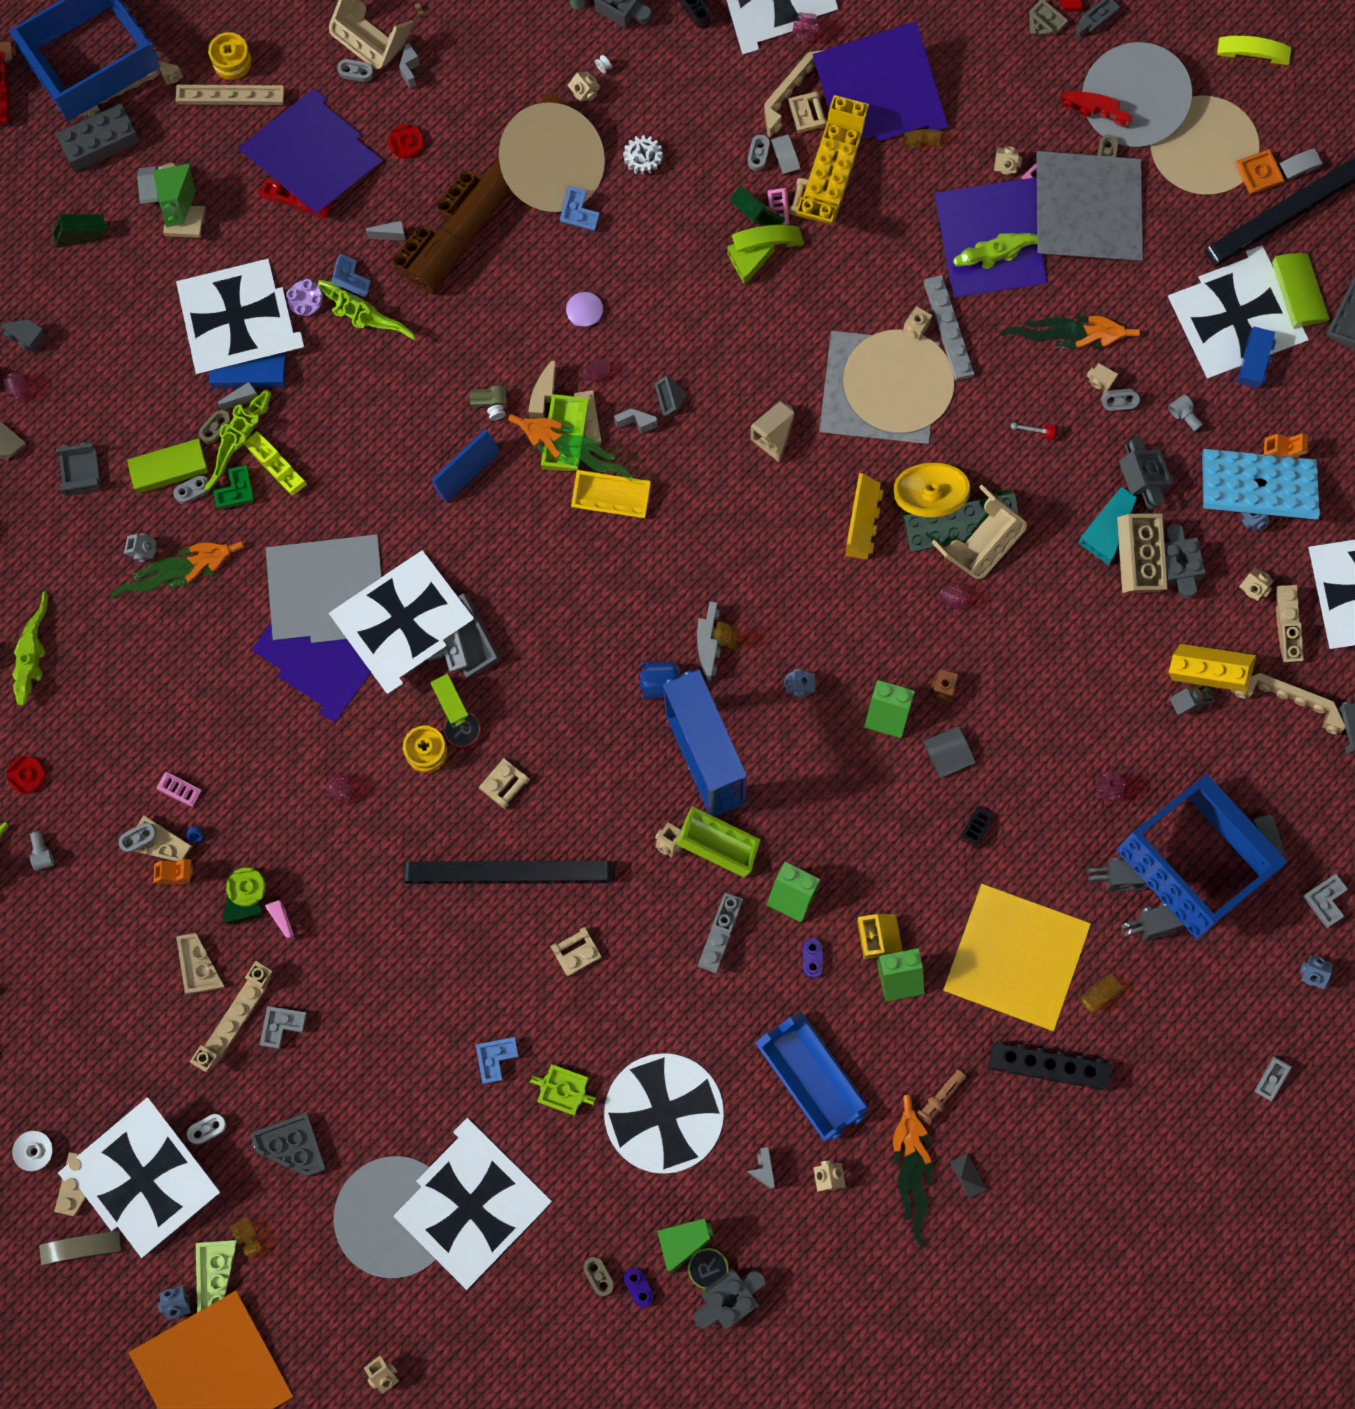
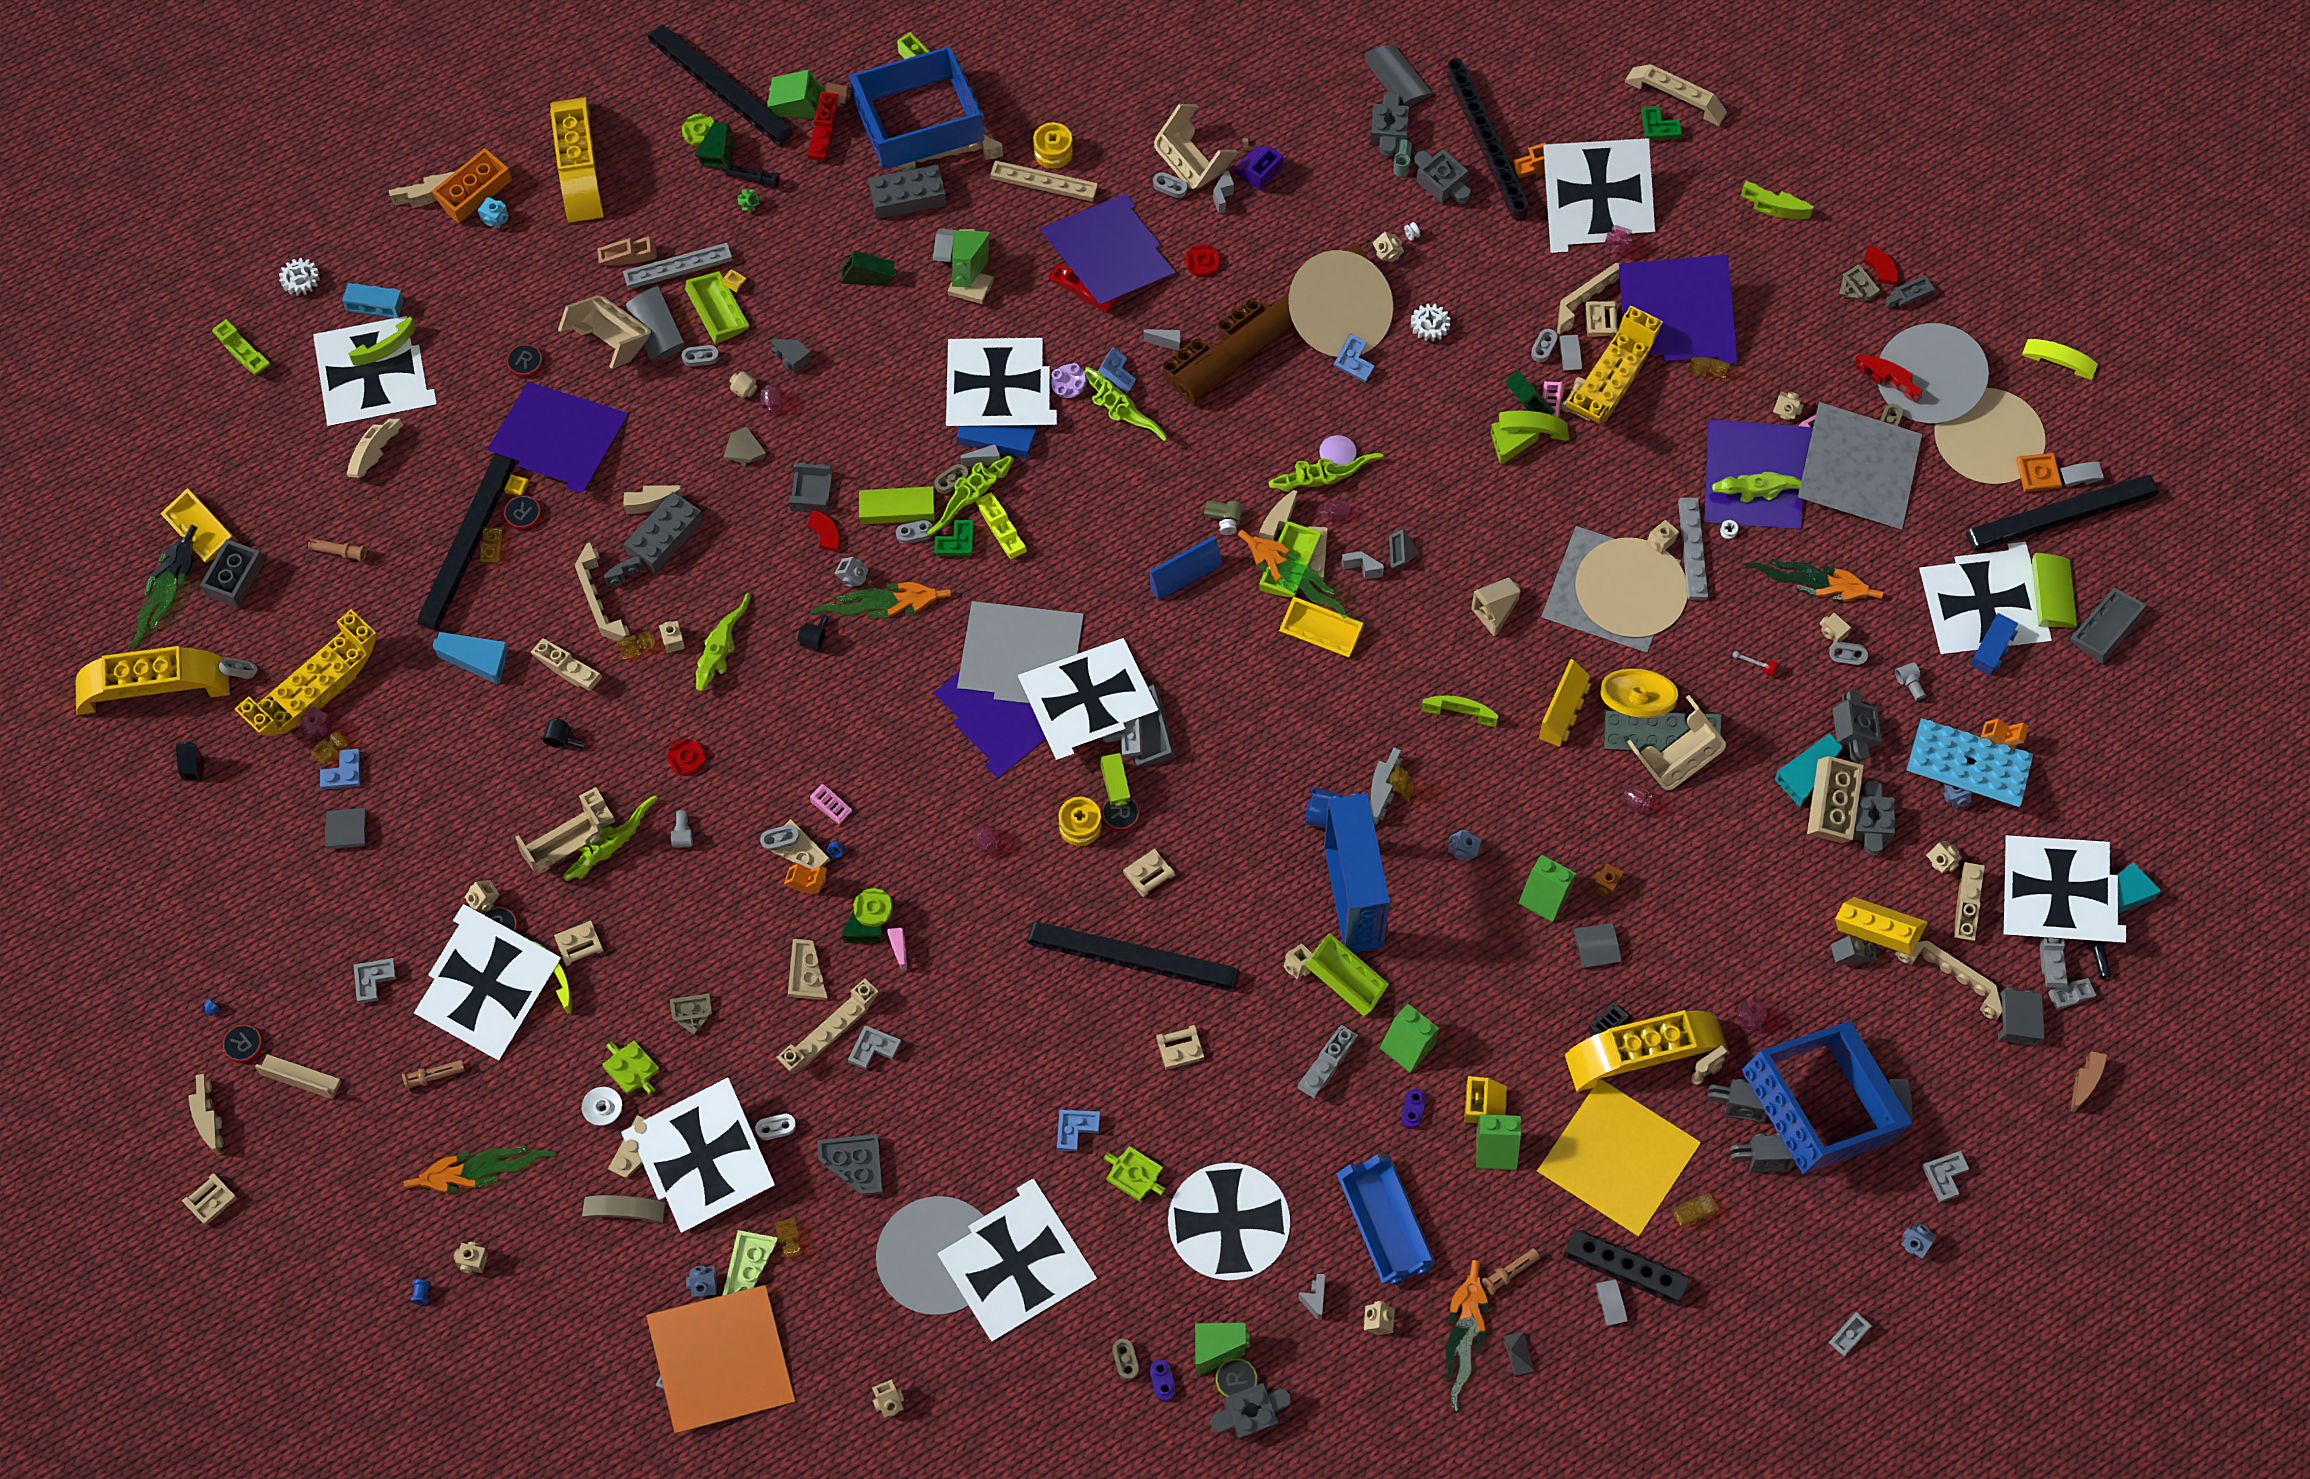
camera: 10 degrees right, 10 degrees down
(51, 1104) = (631, 1067): none -> lime plate
(95, 1032) = (691, 1011): none -> dark tan slope
(104, 508) = (825, 529): none -> red tile
(117, 621) = (813, 635): none -> black piece
(438, 30) = (1260, 166): none -> dark purple slope
(573, 336) = (1319, 474): none -> lime animal
(789, 546) = (1462, 705): none -> lime slope
(976, 305) = (1734, 527): none -> white bush
(1019, 846) = (1643, 1045): none -> yellow slope
(1043, 1104) = (1611, 1302): none -> light grey slope
(1085, 845) = (1709, 1064): none -> tan plate

